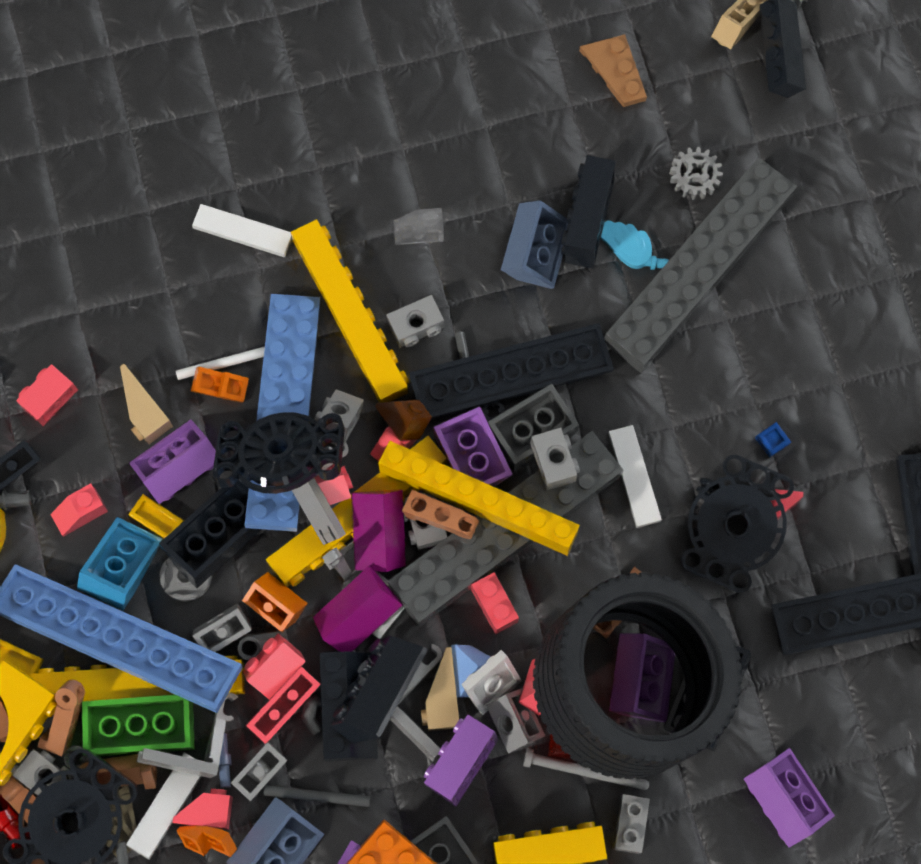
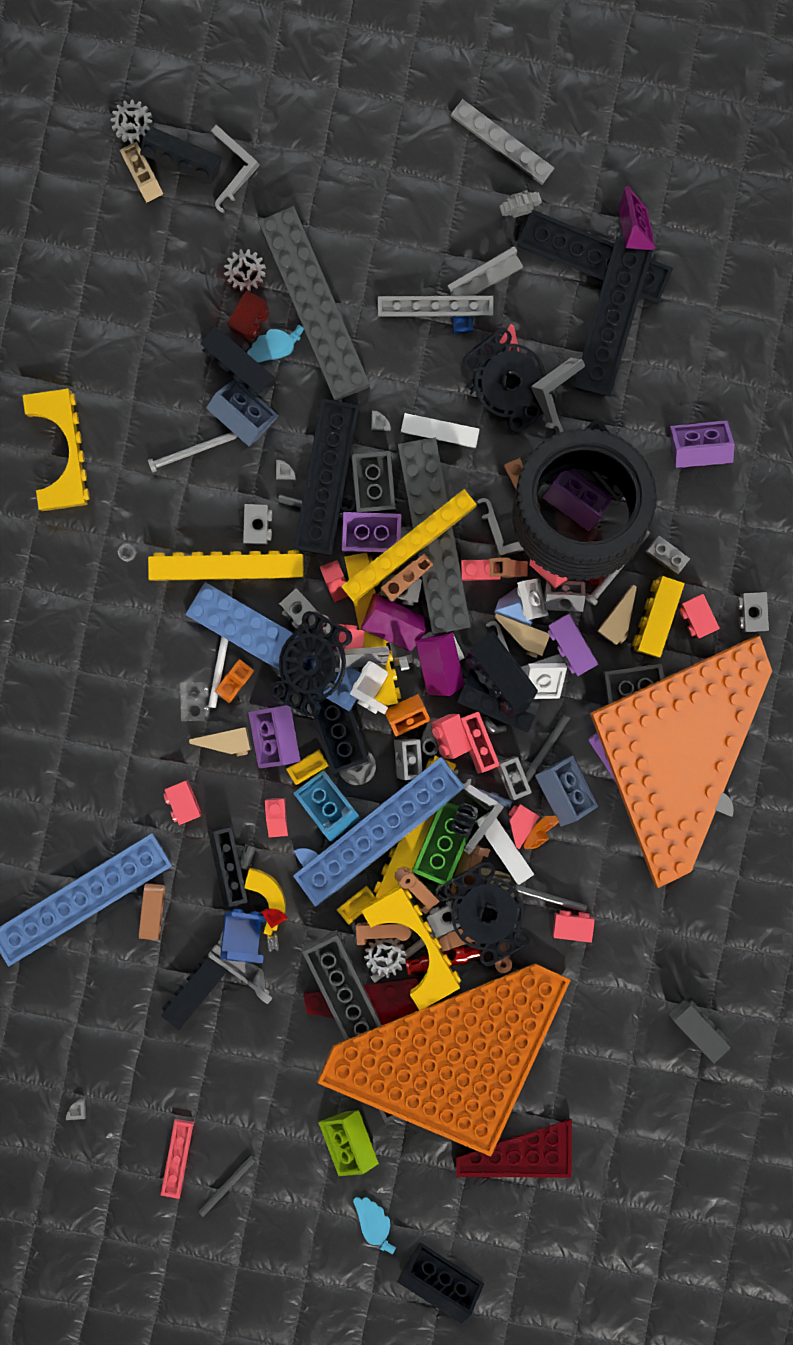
camera: 60 degrees left, 15 degrees up
(47, 567) = (305, 855): none -> medium blue tile
(170, 344) = (188, 701): none -> clear brick
(175, 729) = (464, 819): none -> black gear
(242, 230) = (127, 612): white tile -> none
(285, 534) = (368, 686): none -> white bracket
(310, 206) = (125, 558): none -> clear bush
(354, 104) = (70, 487): none -> yellow arch
(400, 748) = (547, 679): none -> white plate
(405, 418) = (323, 566): reddish brown slope -> none
(419, 227) = (187, 487): clear slope -> none
(425, 180) = (190, 451): none -> light grey bar
(493, 324) = (284, 471): none -> light grey tile
(513, 632) = (508, 568): none -> nougat leg
(518, 804) = (618, 621): none -> tan slope
(533, 620) = (502, 550): none -> light grey hinge
(552, 473) = (416, 488): light grey brick -> none
(607, 403) = (379, 422): none -> light grey tile
(617, 67) = (135, 283): medium nougat wing -> none
(647, 197) = (248, 316): none -> clear red brick
(750, 564) = (550, 382): none -> light grey hinge
(775, 398) = (435, 306): none -> light grey plate
(796, 121) = (243, 174): none -> light grey hinge
(841, 437) = (486, 275): none -> light grey fence

